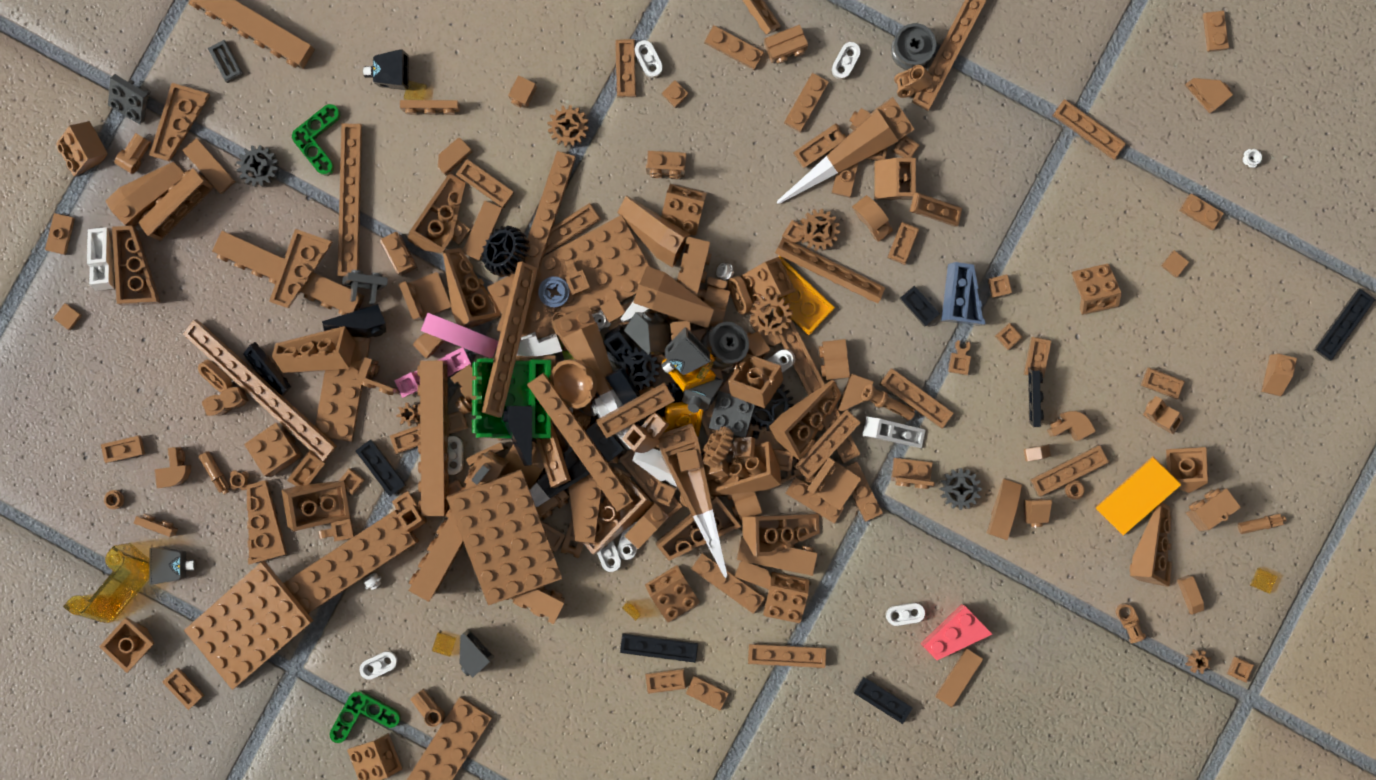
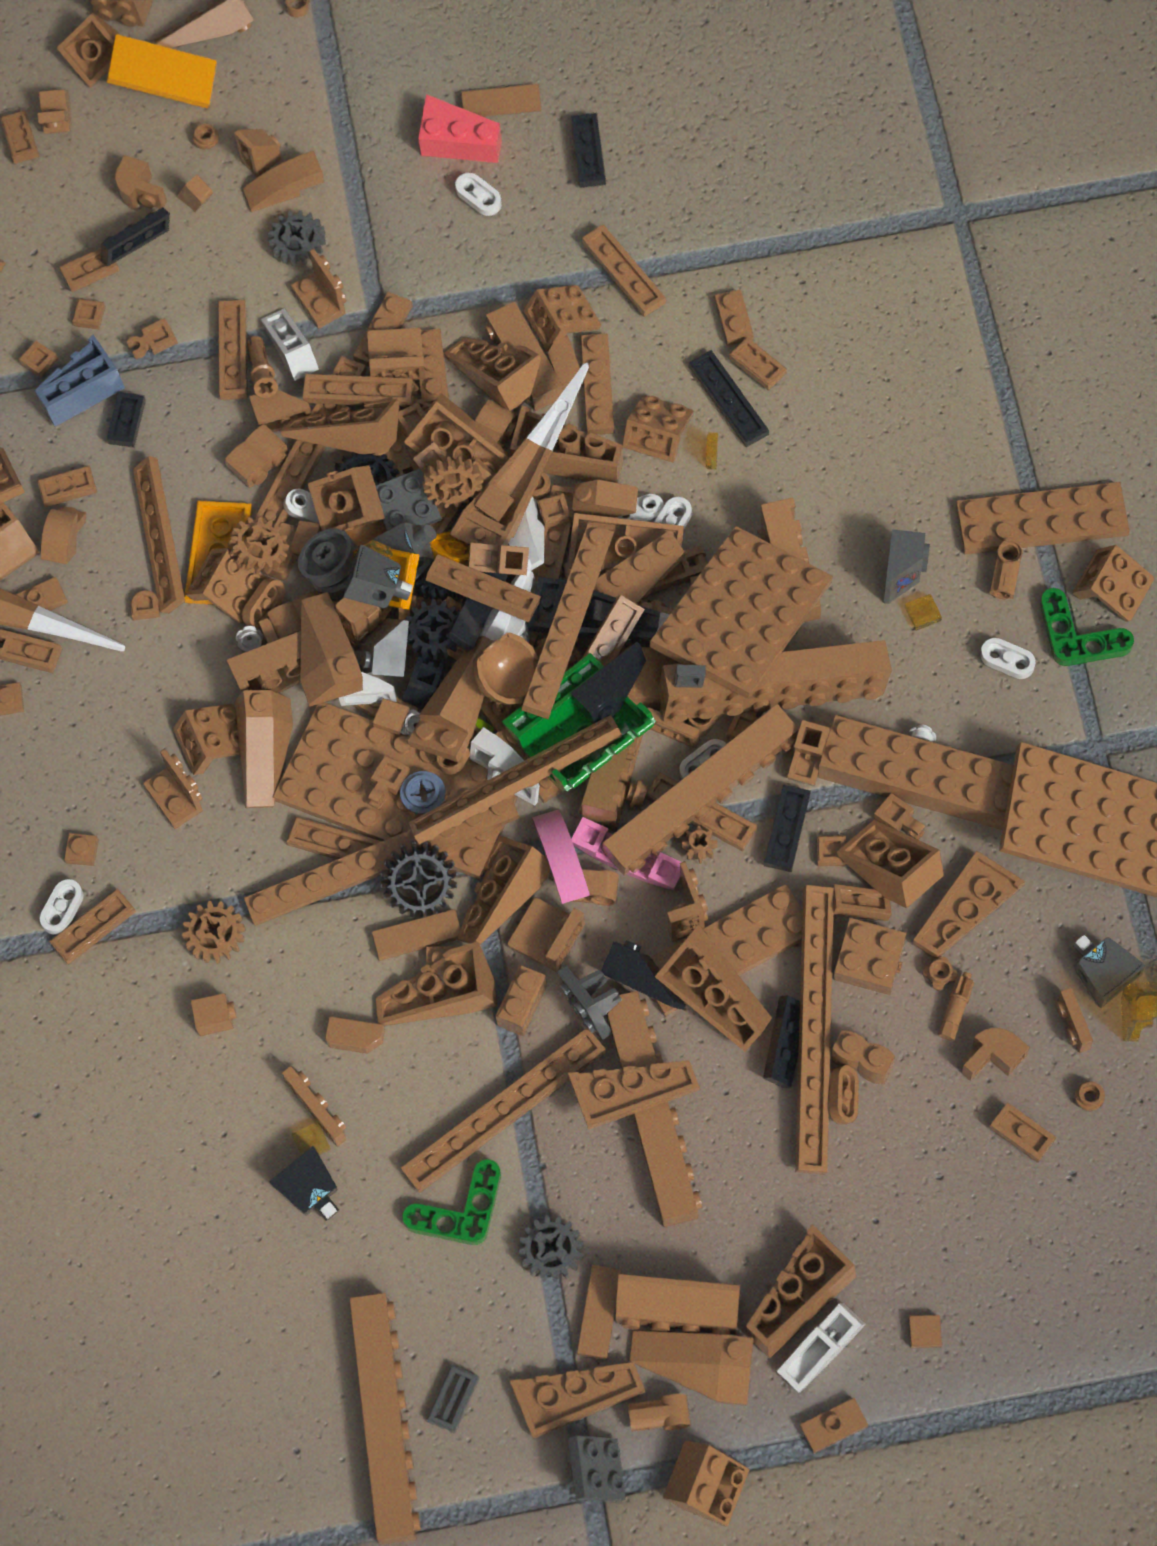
camera: 120 degrees left, 20 degrees down
(485, 183) = (358, 972): medium nougat plate -> none
(823, 235) = (120, 578): medium nougat gear -> none
(1069, 470) = (189, 154): medium nougat plate -> none

